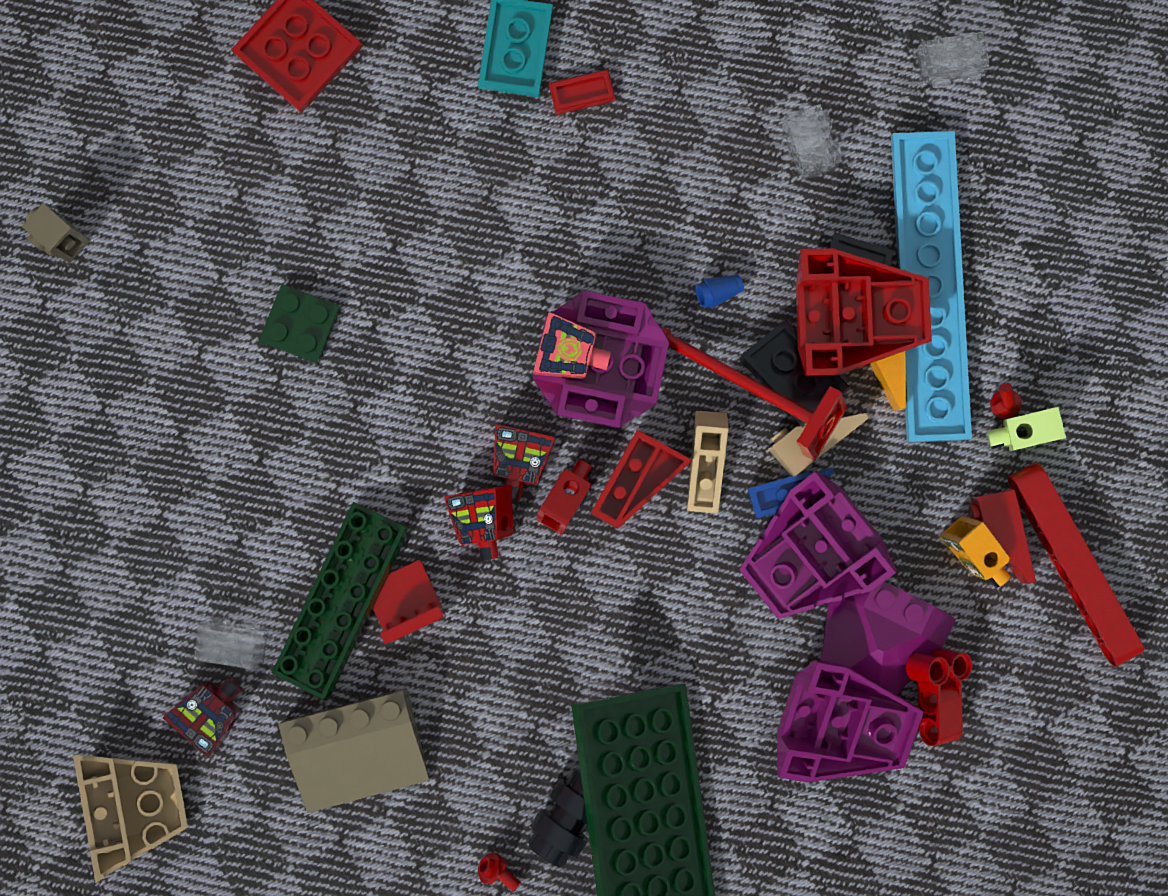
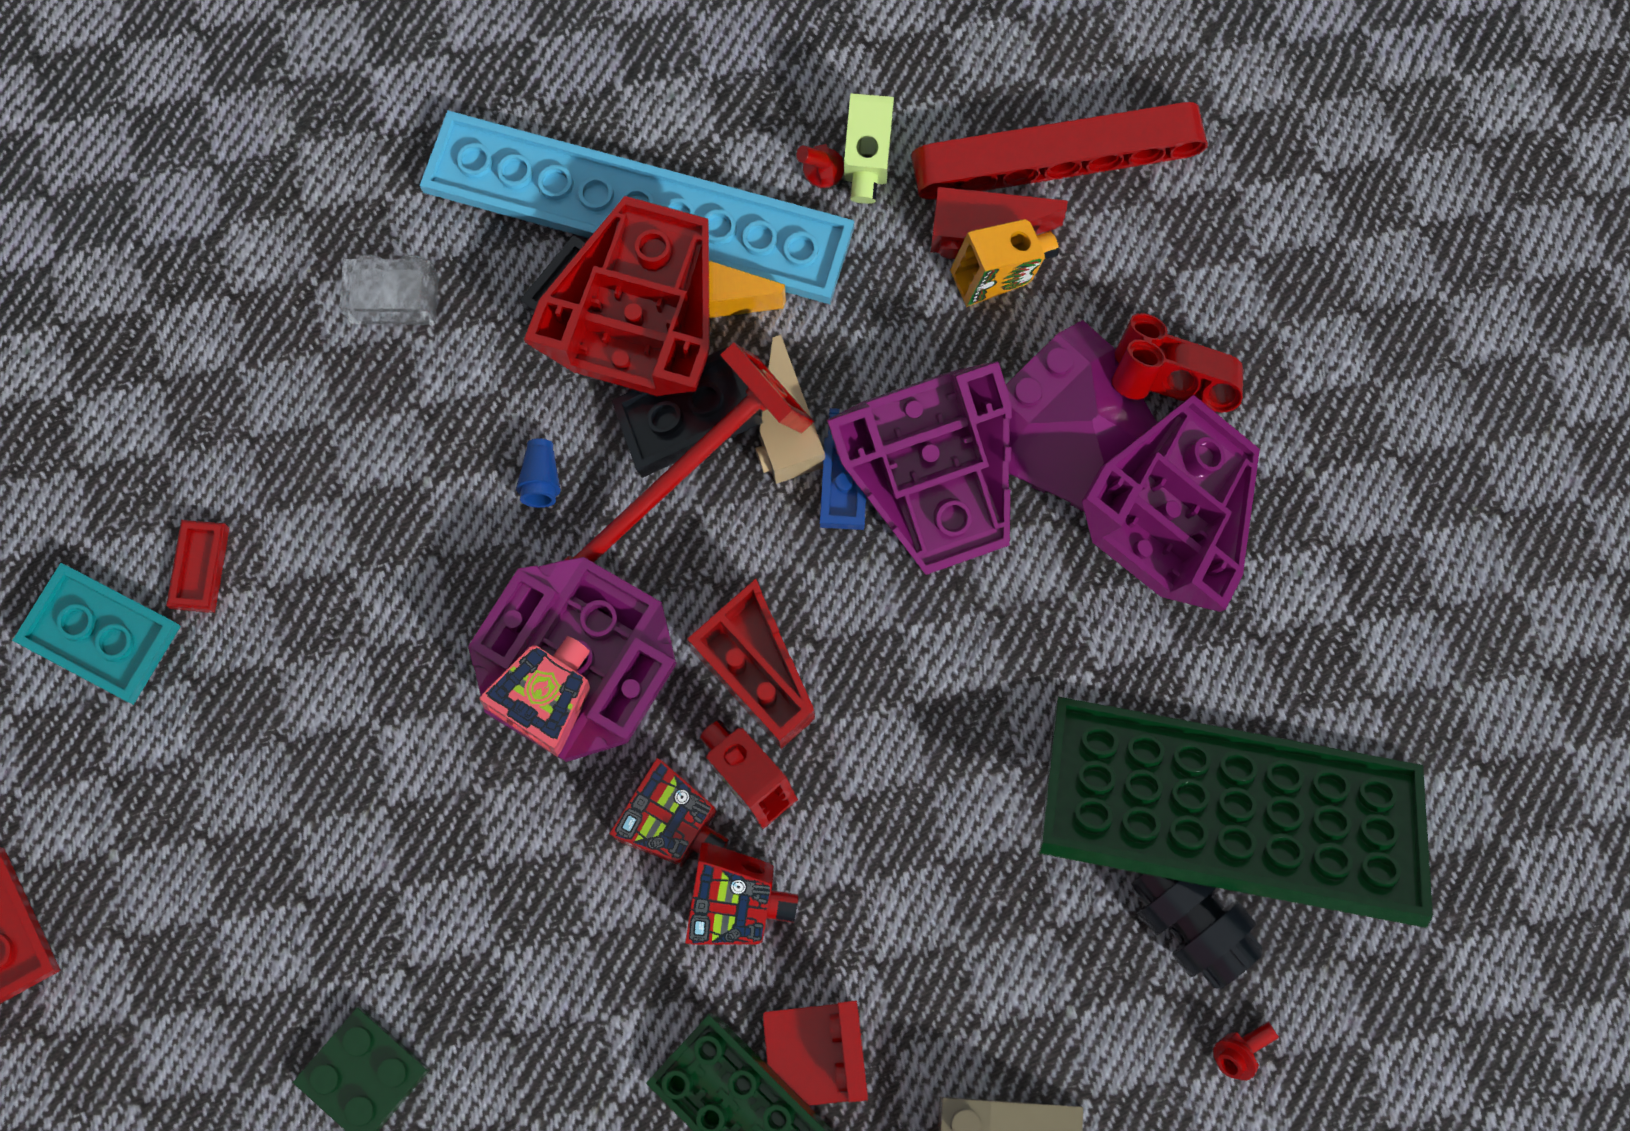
camera: 70 degrees left, 10 degrees down
(708, 461) = (749, 555): tan slope -> none
(952, 59) = (354, 83): clear brick -> none

